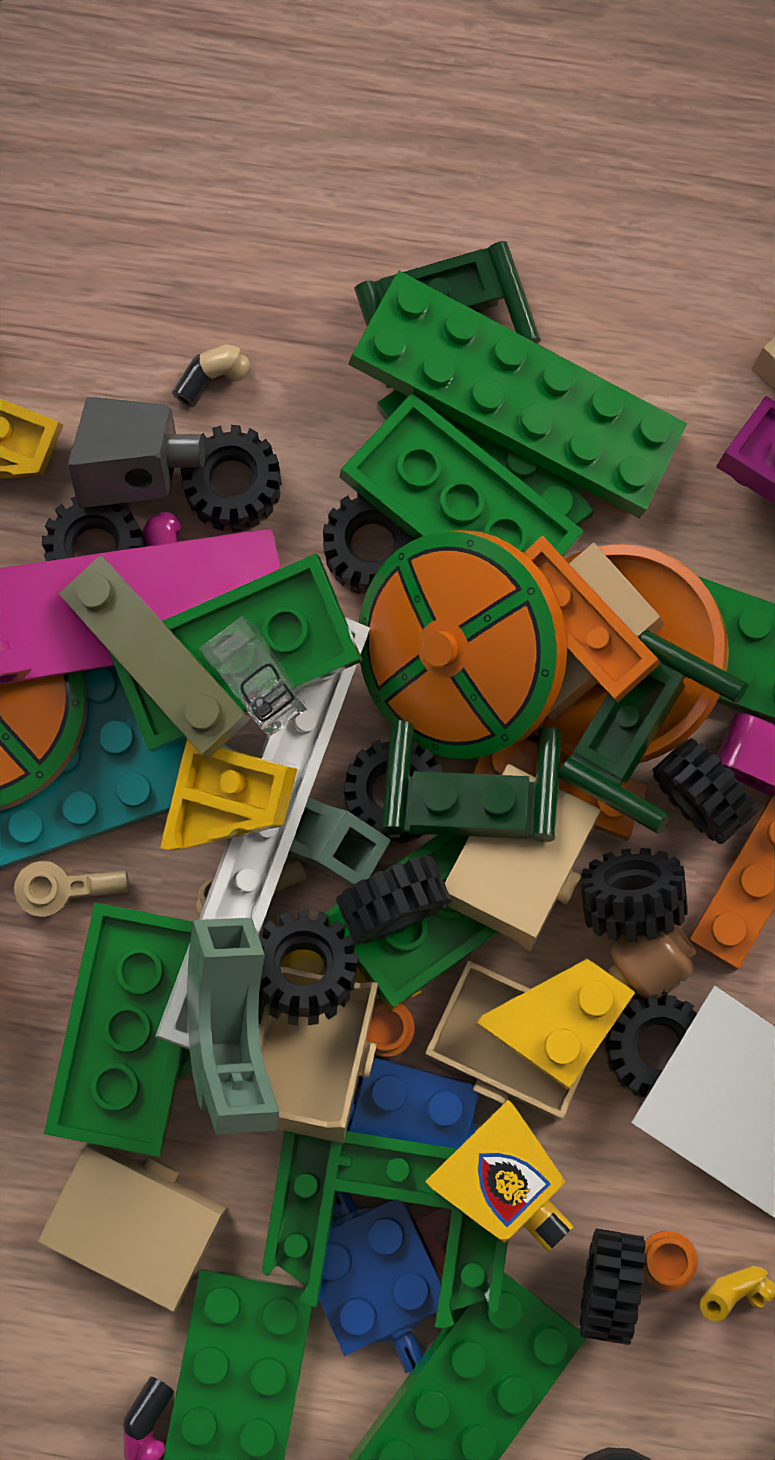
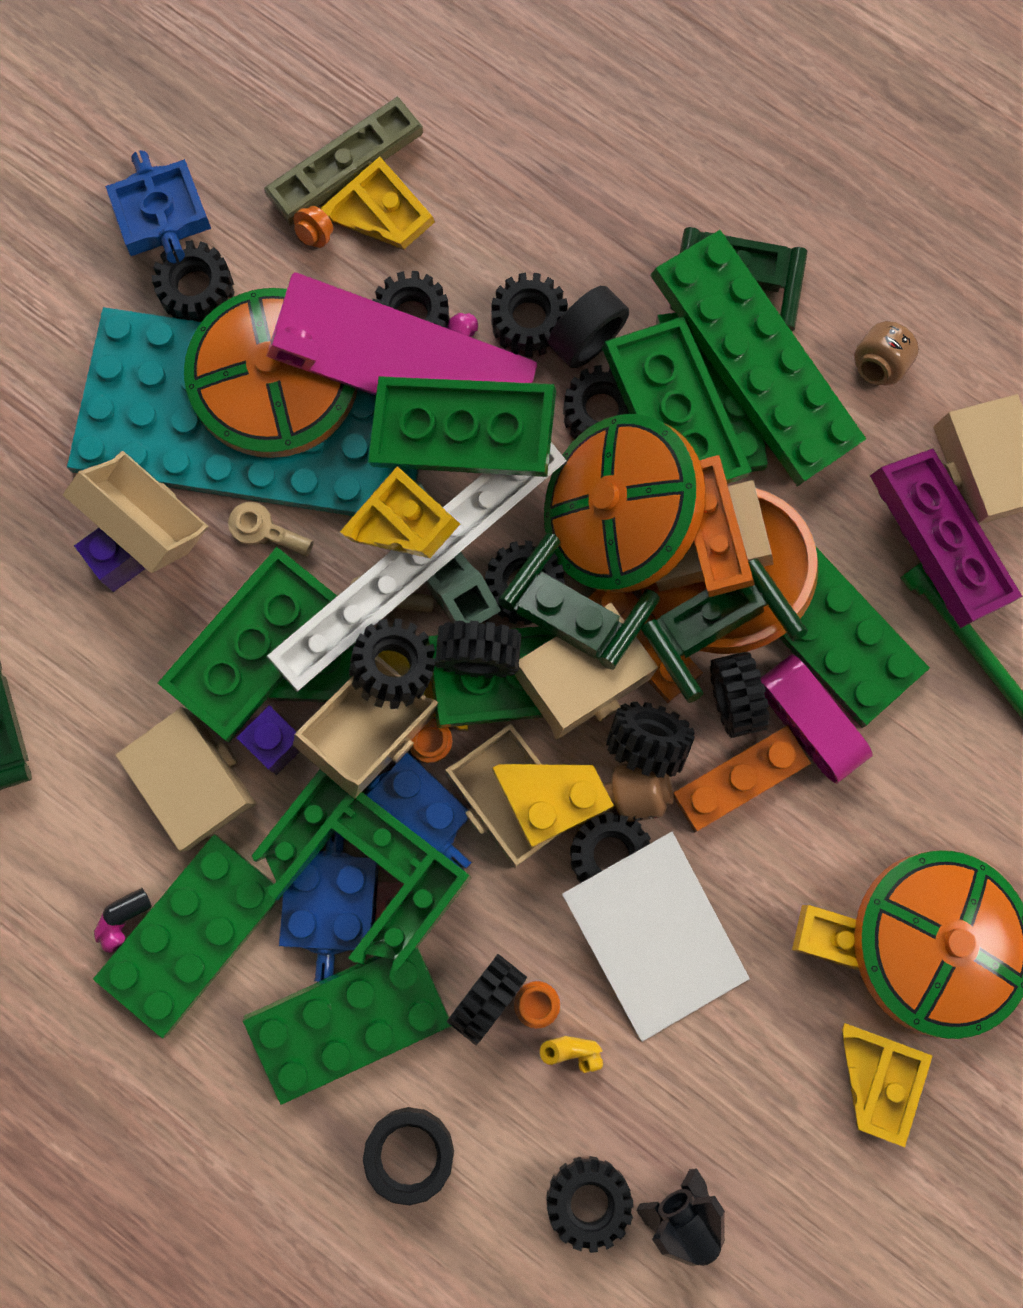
camera: 25 degrees right, 0 degrees up
(128, 452) = (466, 258): dark grey torso -> none
(154, 657) = (405, 399): olive plate -> none
(196, 1133) = (270, 740): none -> dark purple brick
(206, 366) = (554, 232): arm -> none
(224, 1026) = (315, 671): sand green arch -> none
(255, 675) = (465, 444): clear leg -> none
(309, 459) = (587, 326): none -> black tyre
(504, 1180) = (449, 881): yellow torso -> none
(657, 315) = (886, 353): none -> medium nougat head

